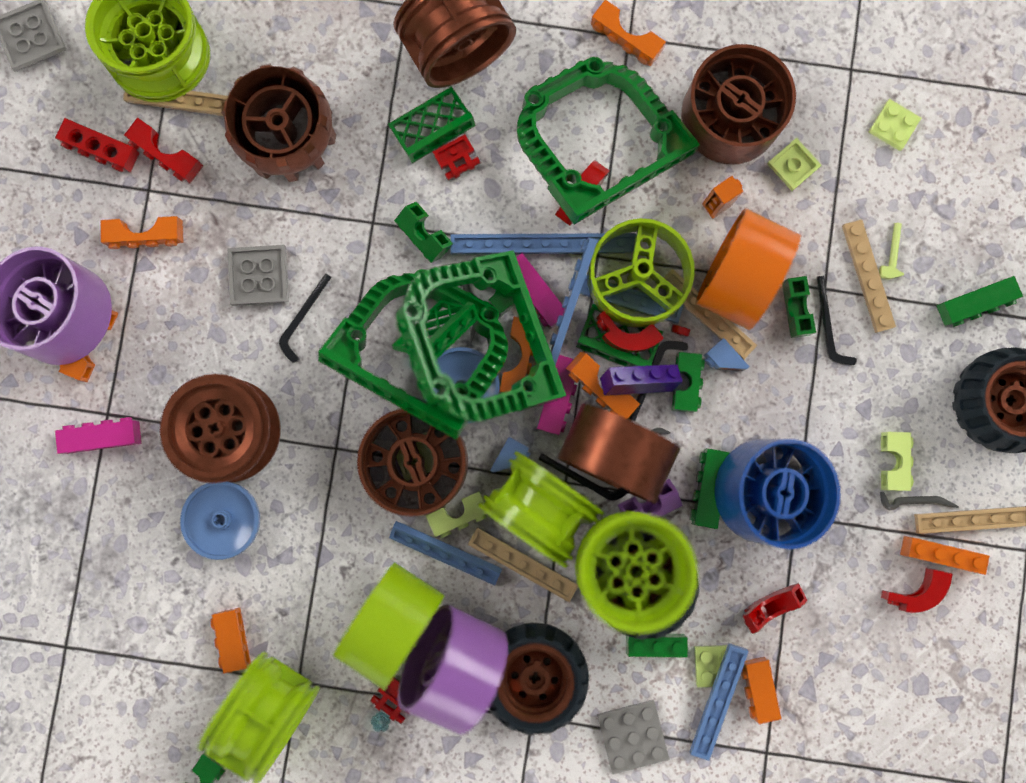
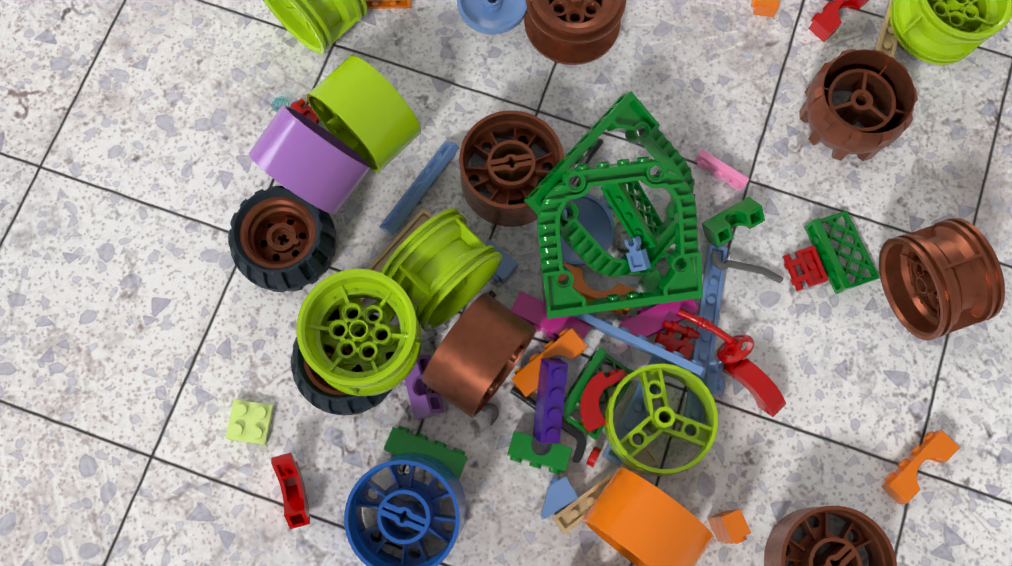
camera: 100 degrees right, 10 degrees down
(257, 275) = (713, 70): light grey plate -> none
(284, 339) = (644, 82): black piece -> none
(370, 251) = (721, 170): none -> bright pink plate
(442, 522) = (450, 188): yellowish green arch -> none
(467, 216) = (745, 267): none -> dark grey piece
(487, 319) = (637, 257): none -> medium blue plate
(545, 219) = (731, 343): none -> red dish
(561, 270) = (674, 344): none -> red plate
(583, 198) = (745, 375): green arch -> none
(585, 227) = (715, 380): none -> medium blue plate
(633, 736) = (204, 328): light grey plate -> none
(668, 646) = (280, 377): green arch -> none
(718, 701) = (214, 415): medium blue plate -> none
(760, 690) = (213, 461): orange brick -> none

